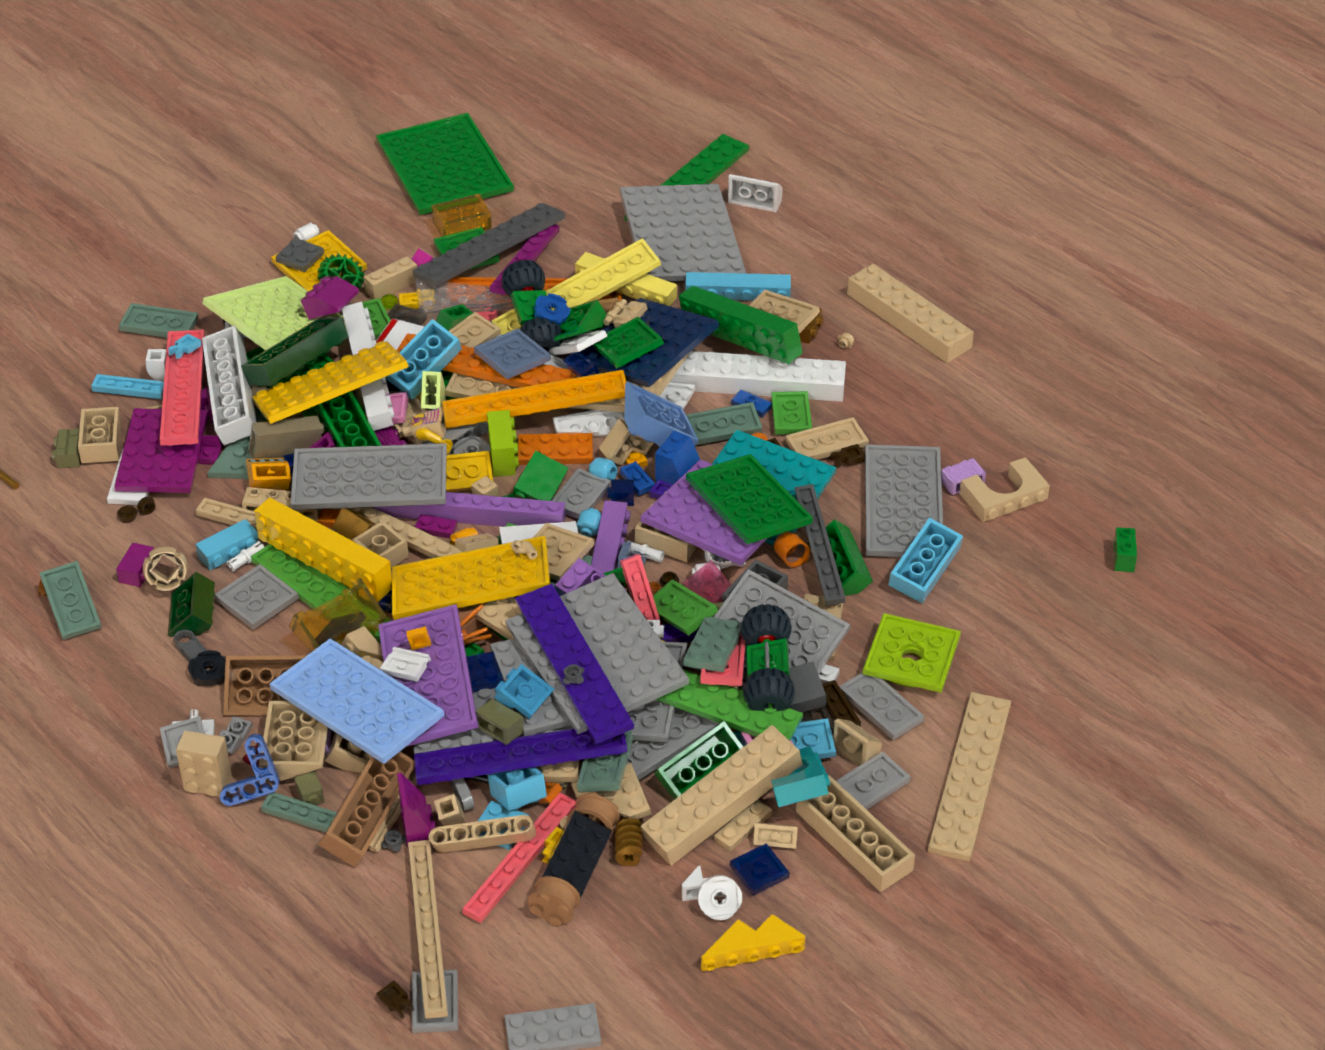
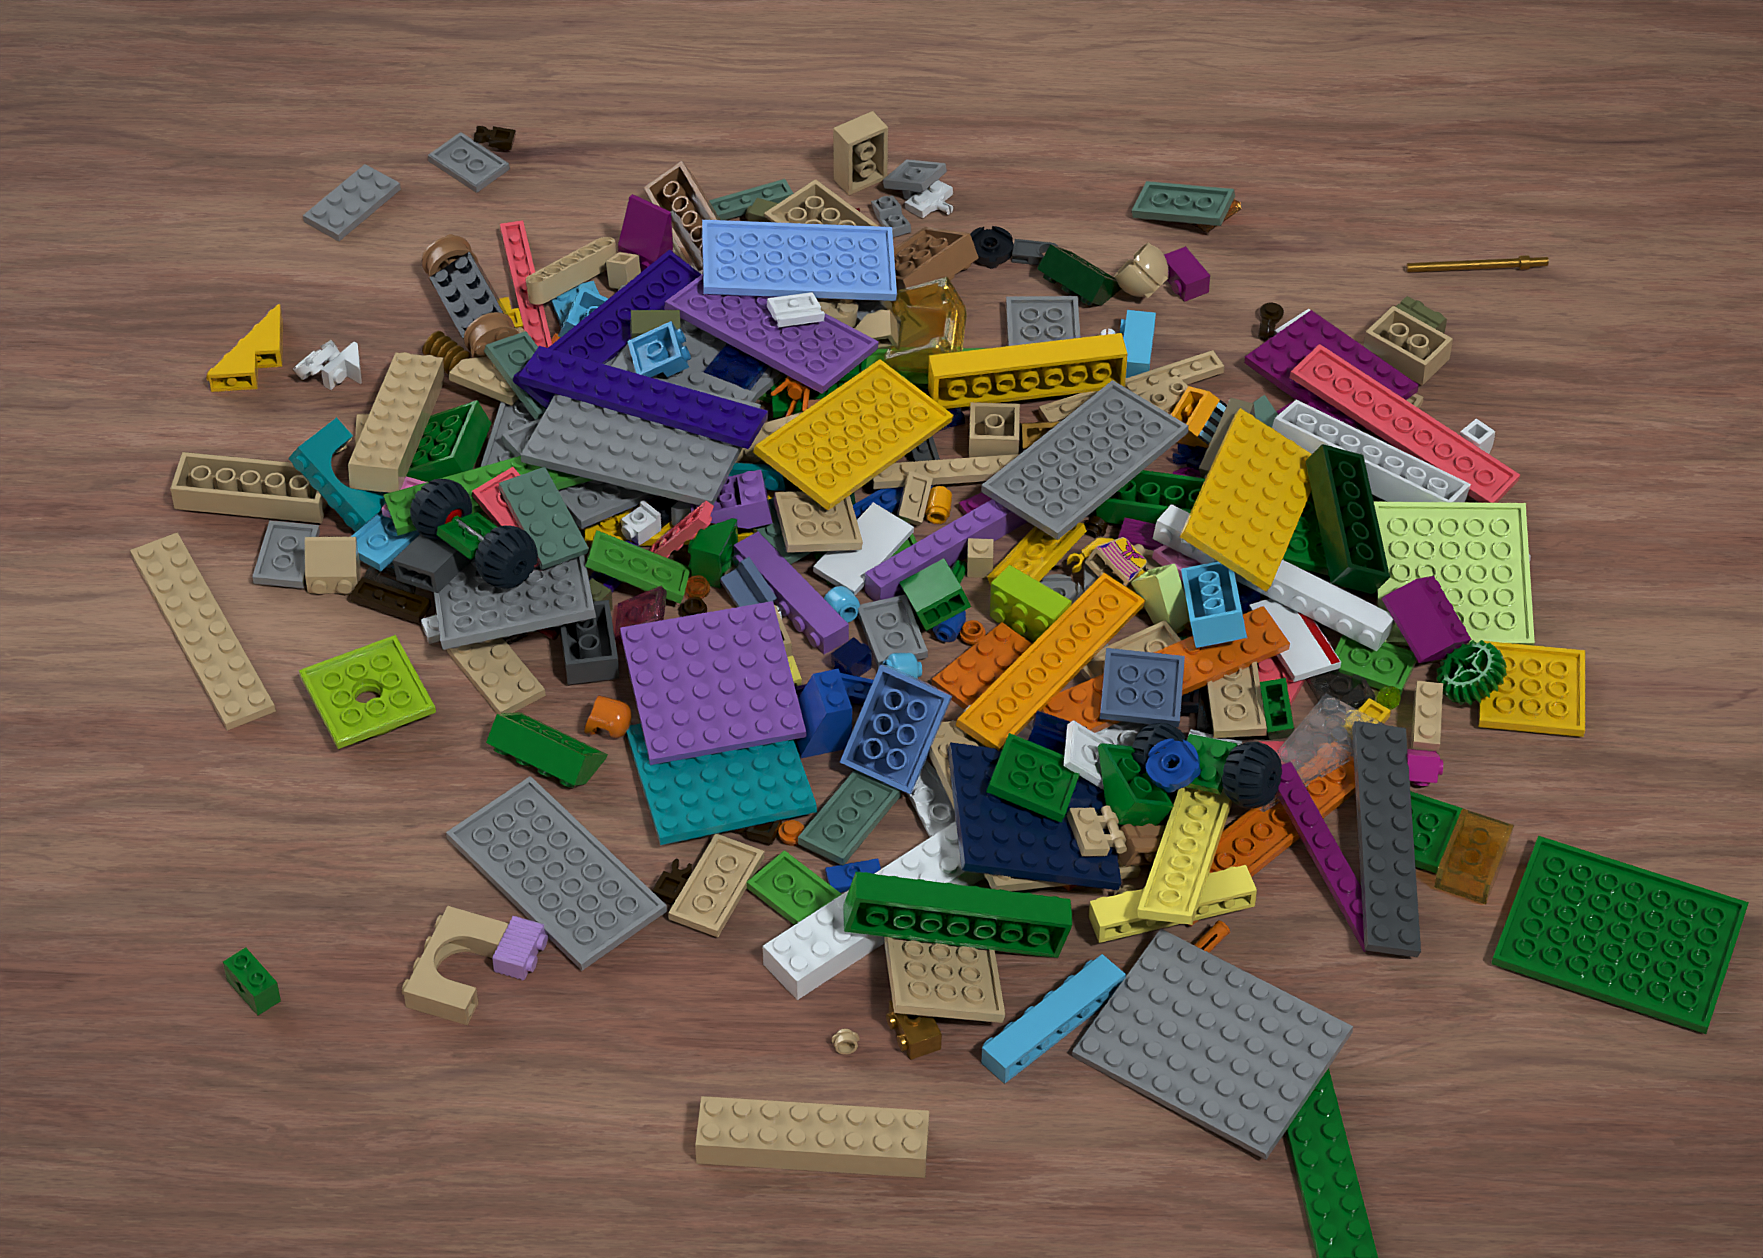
camera: 135 degrees right, 5 degrees up
(128, 386) = (1485, 410): medium azure plate -> none
(156, 320) = (1567, 499): sand green plate -> none
(184, 345) = (1465, 459): medium azure plate -> none
(261, 775) = (818, 170): blue beam -> none
(300, 254) = (1556, 669): dark grey plate -> none
(306, 232) = (1600, 709): white brick -> none
(340, 625) = (912, 320): clear smoke plate -> none
(418, 638) = (810, 330): light orange plate -> none
(427, 930) = (527, 186): tan plate -> none
(524, 547) = (826, 472): tan arm -> none
(573, 674) = (616, 367): dark grey plate -> none
(749, 498) = (688, 696): green plate -> none
(754, 193) = (1208, 1178): white slope -> none
(759, 869) = (309, 412): clear blue plate -> none
(821, 547) = (577, 729): dark grey plate -> none
(882, 705) = (346, 629): light grey plate -> none
(925, 560) = (448, 793): medium azure brick -> none

